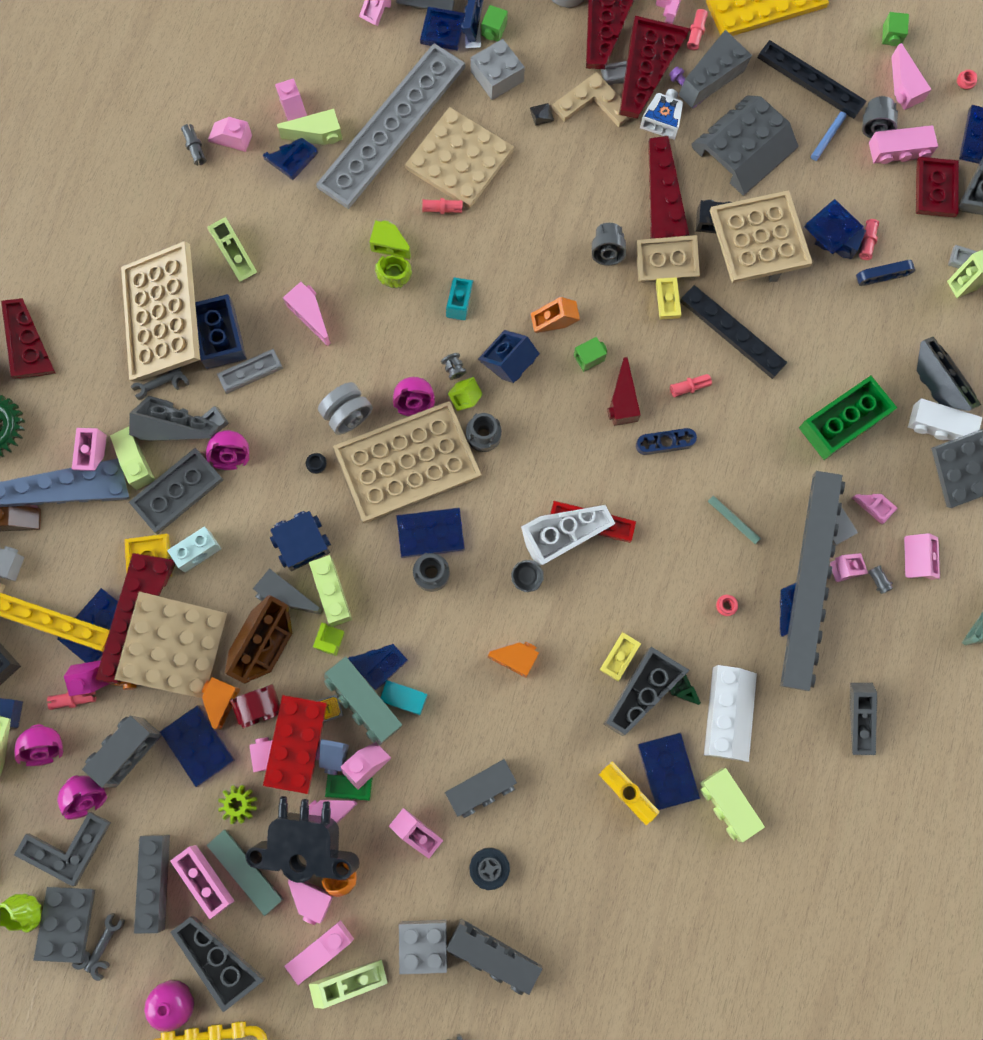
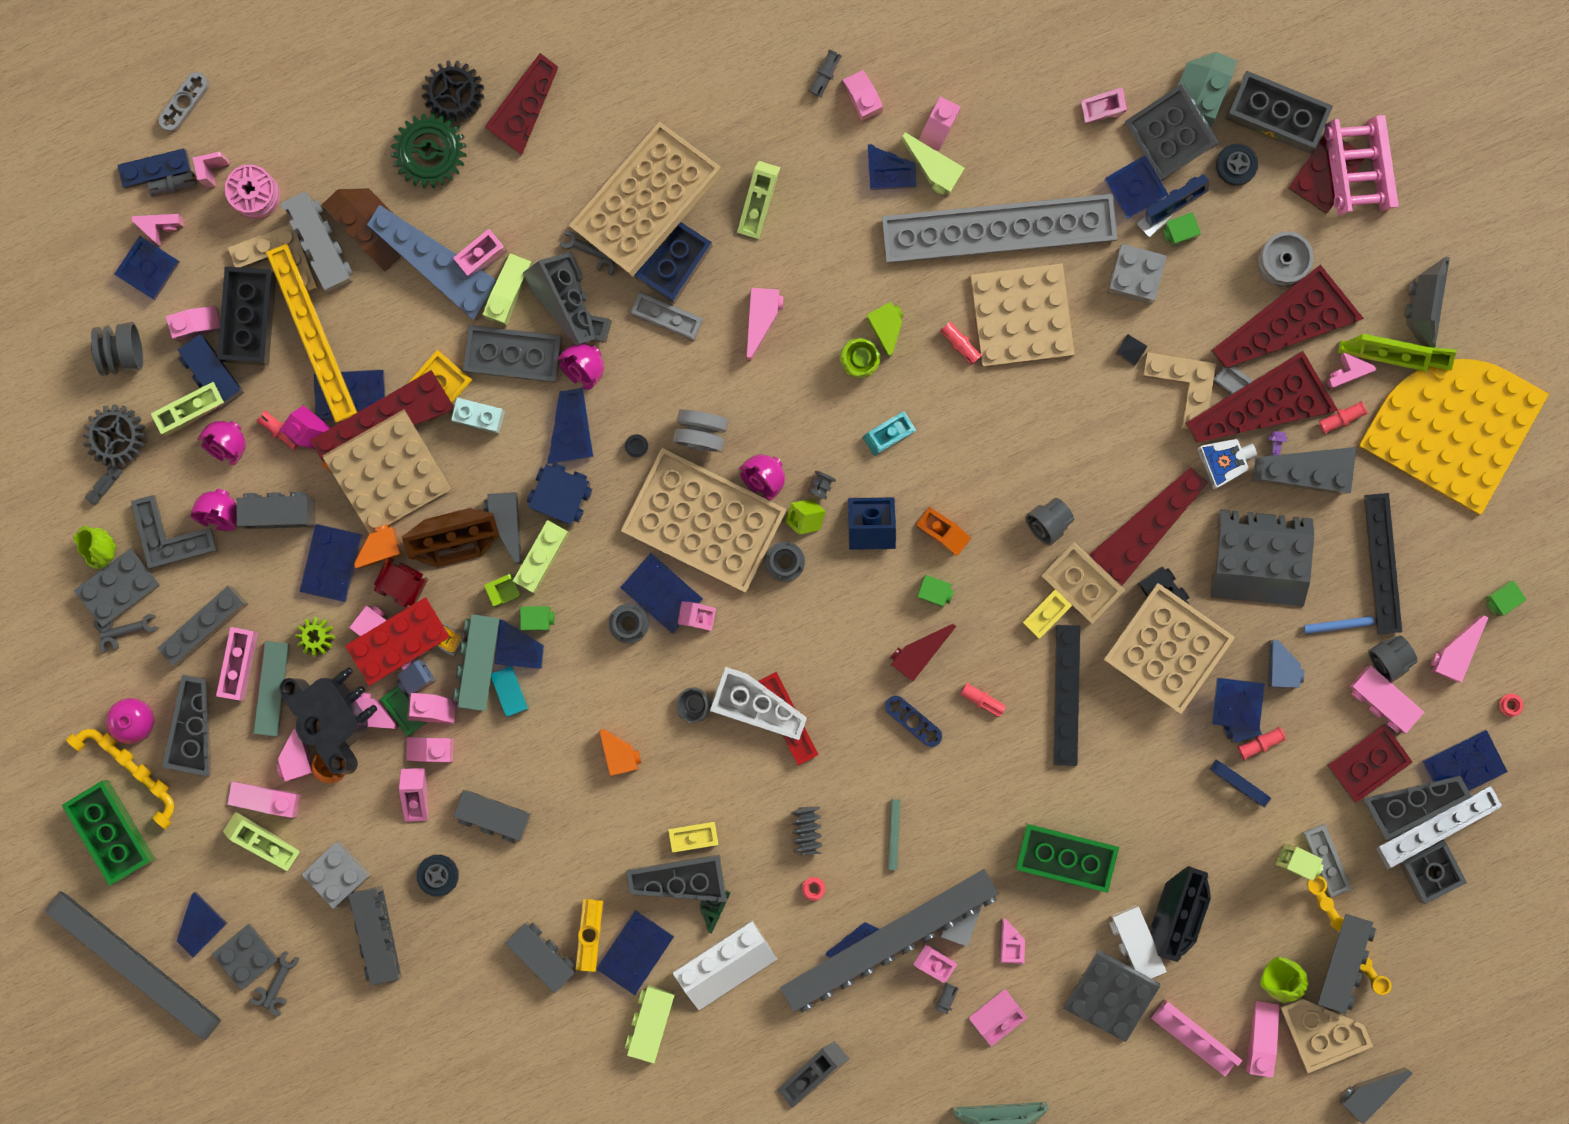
camera: 55 degrees right, 10 degrees up
(264, 496) = (571, 429): none -> clear blue wing
(370, 632) = (536, 618): none -> bright green brick
(393, 792) = (430, 749): none -> bright pink slope
(466, 519) = (696, 615): none -> bright pink slope
(615, 842) = (541, 956): none -> dark grey brick
(683, 574) = (806, 830): none -> dark grey piece
(828, 185) = (1283, 667): none -> sand blue slope

